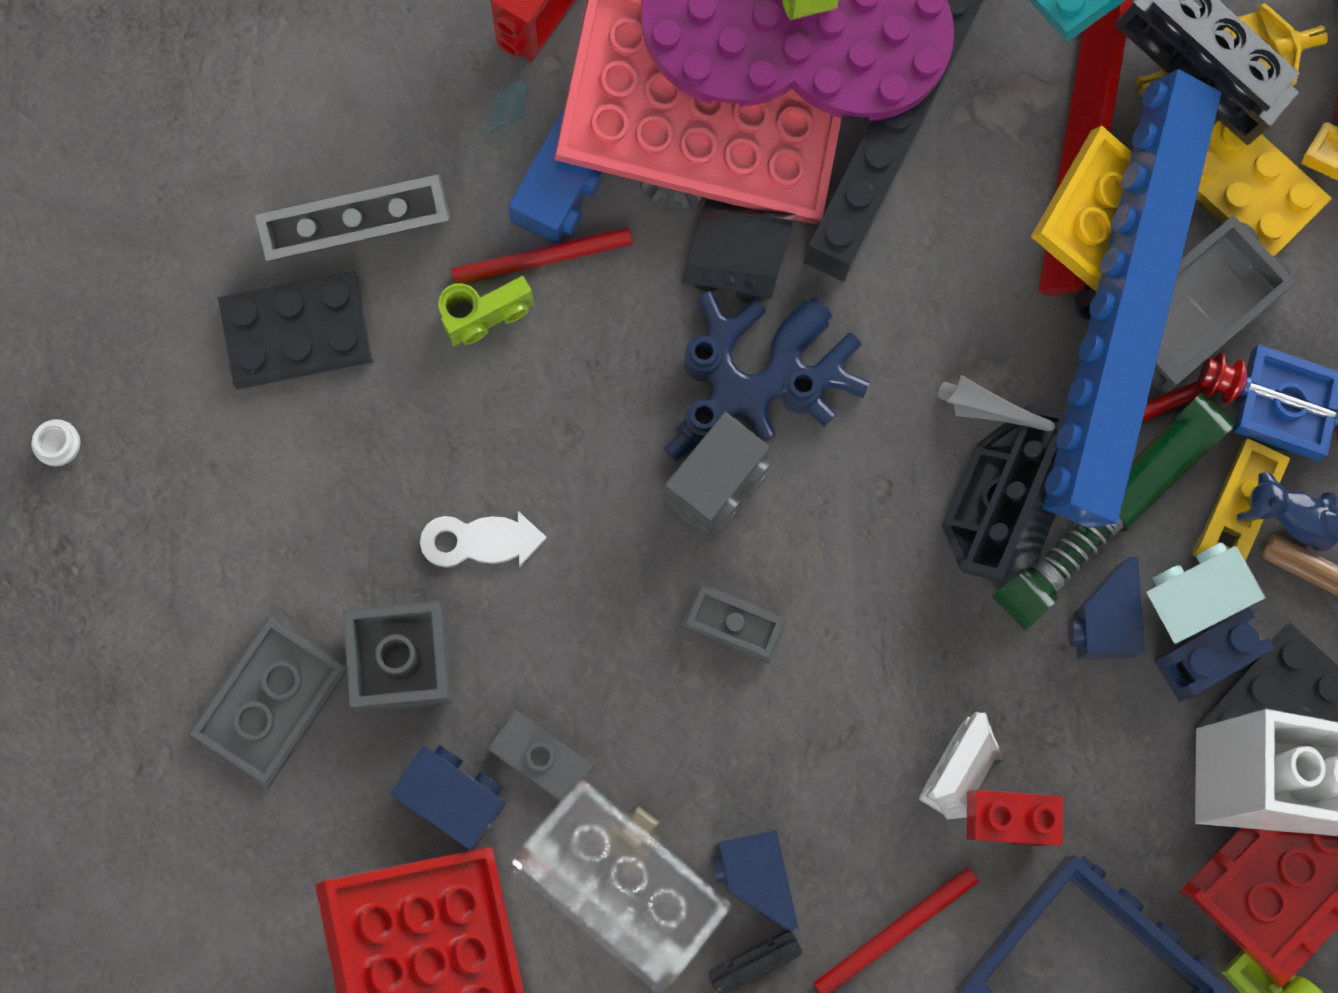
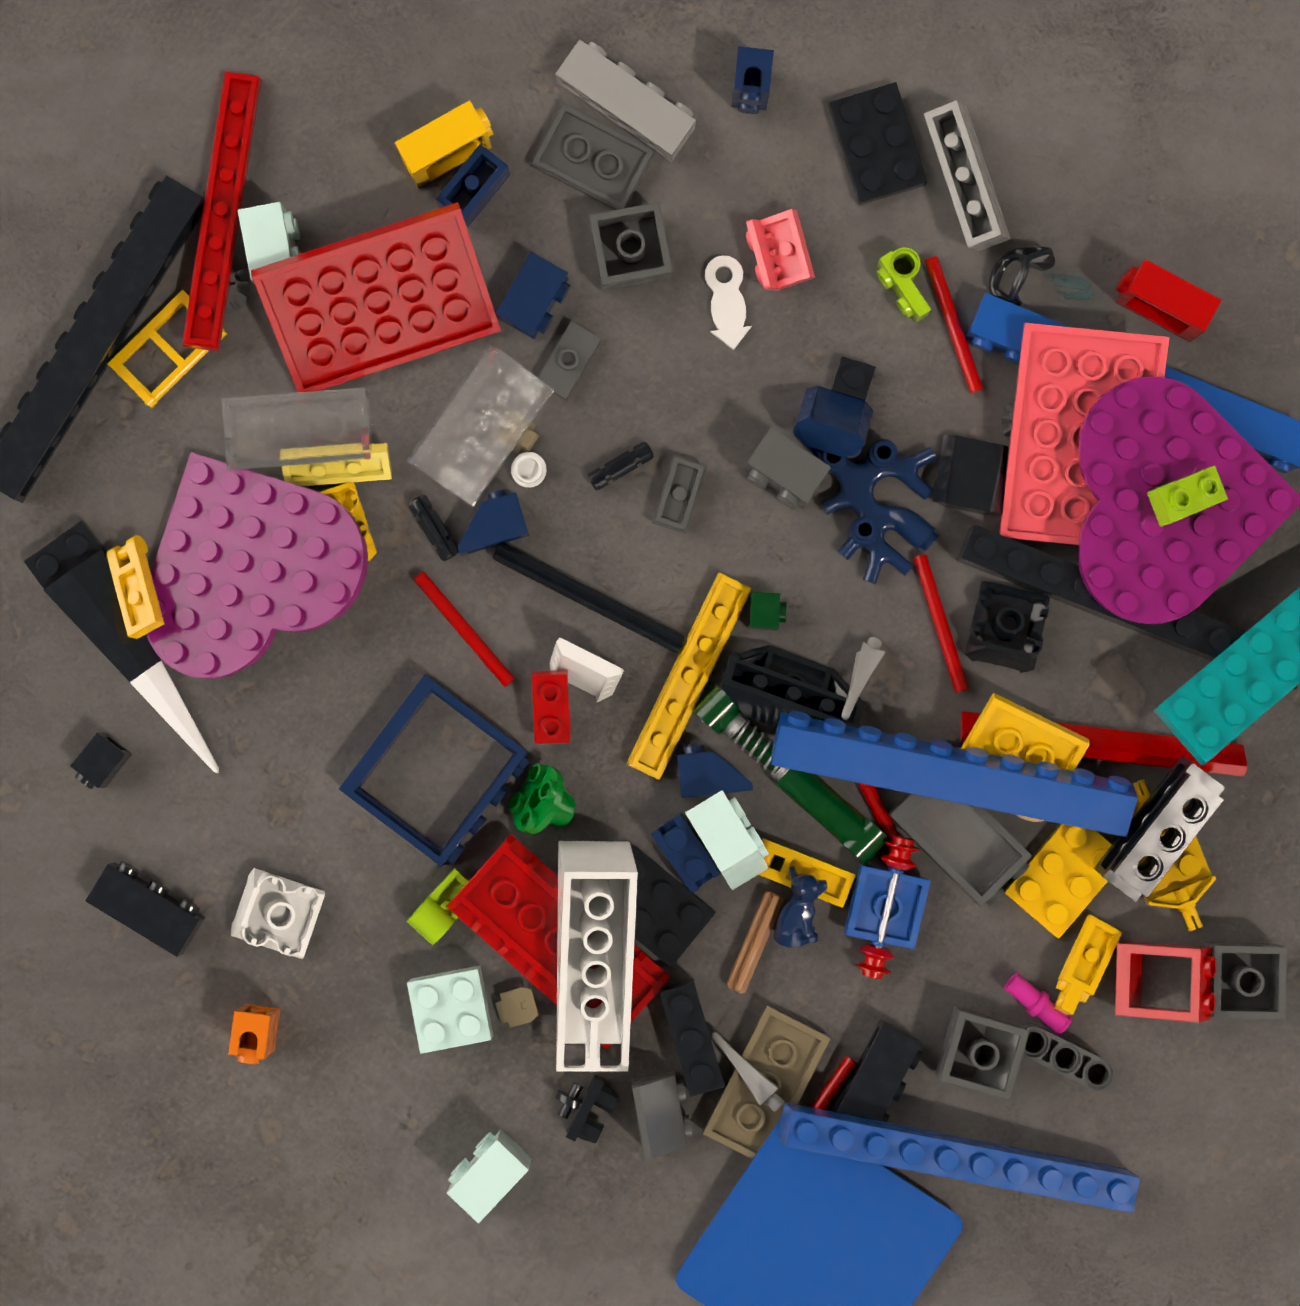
camera: 90 degrees right, 10 degrees up
(191, 475) = (752, 79): none -> dark blue brick
(194, 650) = (626, 100): none -> light grey brick
(224, 901) = (444, 143): none -> yellow window
(285, 865) = (474, 184): none -> dark blue brick
(423, 463) = (779, 250): none -> coral bracket
(468, 147) = (1035, 257): none -> black piece
(600, 387) = (853, 378): none -> black plate
(658, 413) = (833, 421): none -> dark blue slope
(685, 824) = (528, 469): none -> white plate
(689, 699) = (620, 465): none -> black axle
(864, 757) = (589, 598): none -> black axle
(898, 523) = (766, 611): none -> dark green plate
(924, 306) = (940, 623): none -> red bar
(935, 223) = (1007, 627): none -> black slope
(978, 633) = (689, 676): none -> yellow tile
(1140, 843) = (541, 801): none -> green plate

